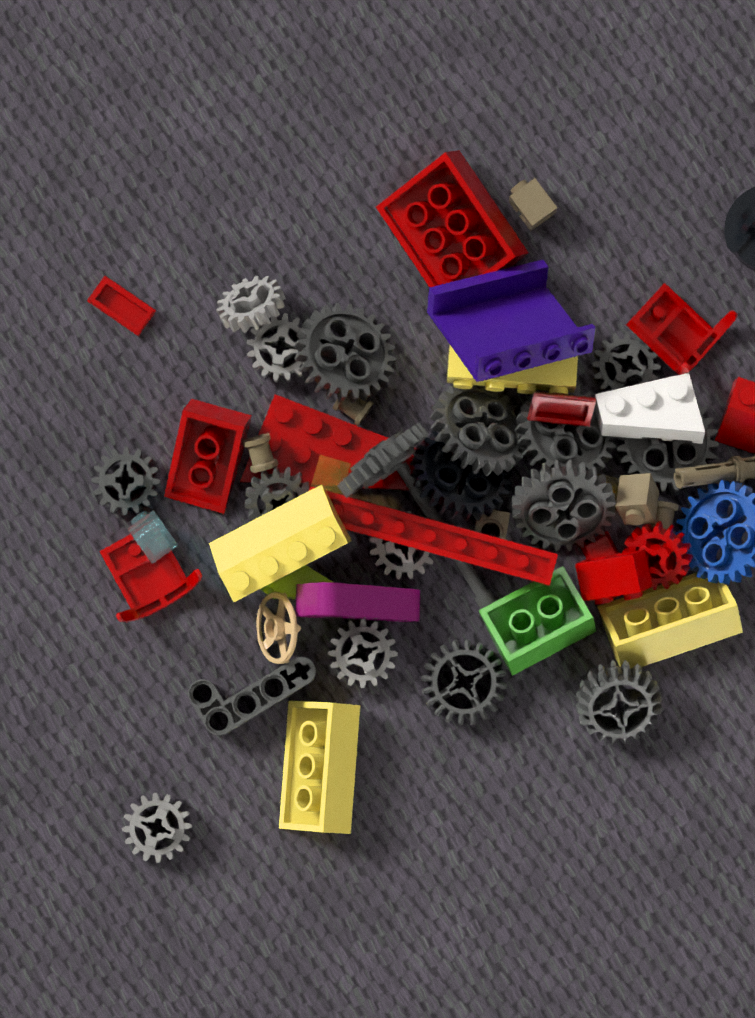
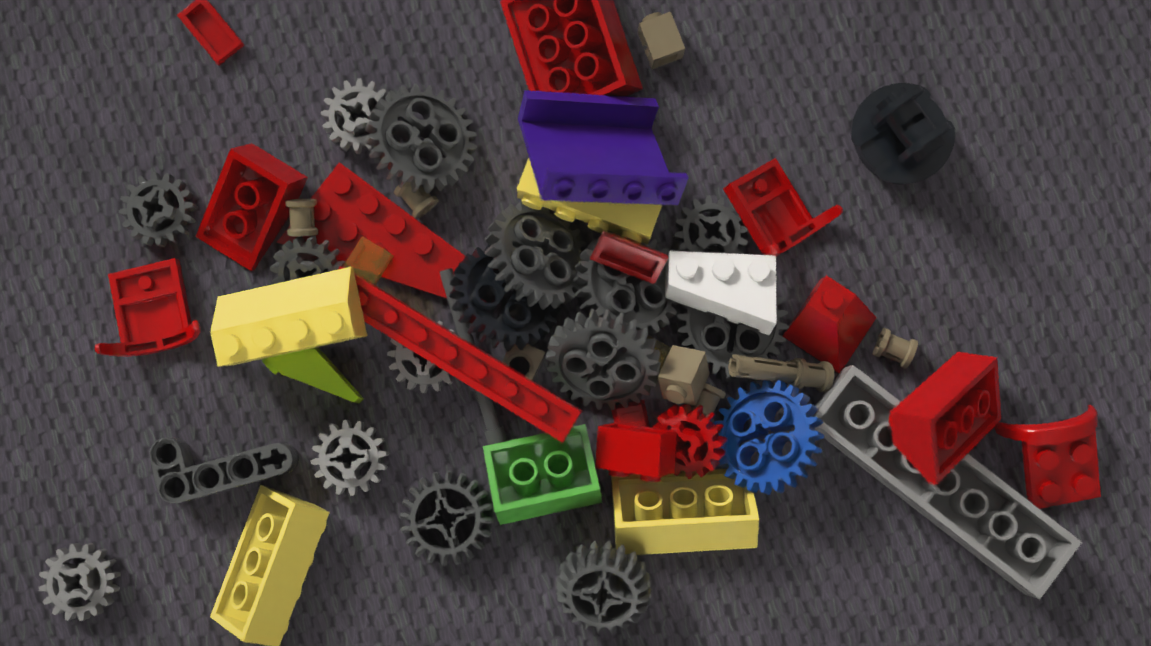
camera: 15 degrees right, 0 degrees up
(151, 535) = (161, 273): clear light blue brick -> none
(250, 304) = (338, 61): light grey gear -> none
(277, 628) = (265, 405): tan wheel -> none
(357, 602) = (356, 403): magenta beam -> none
(383, 460) = (421, 258): dark grey gear -> none

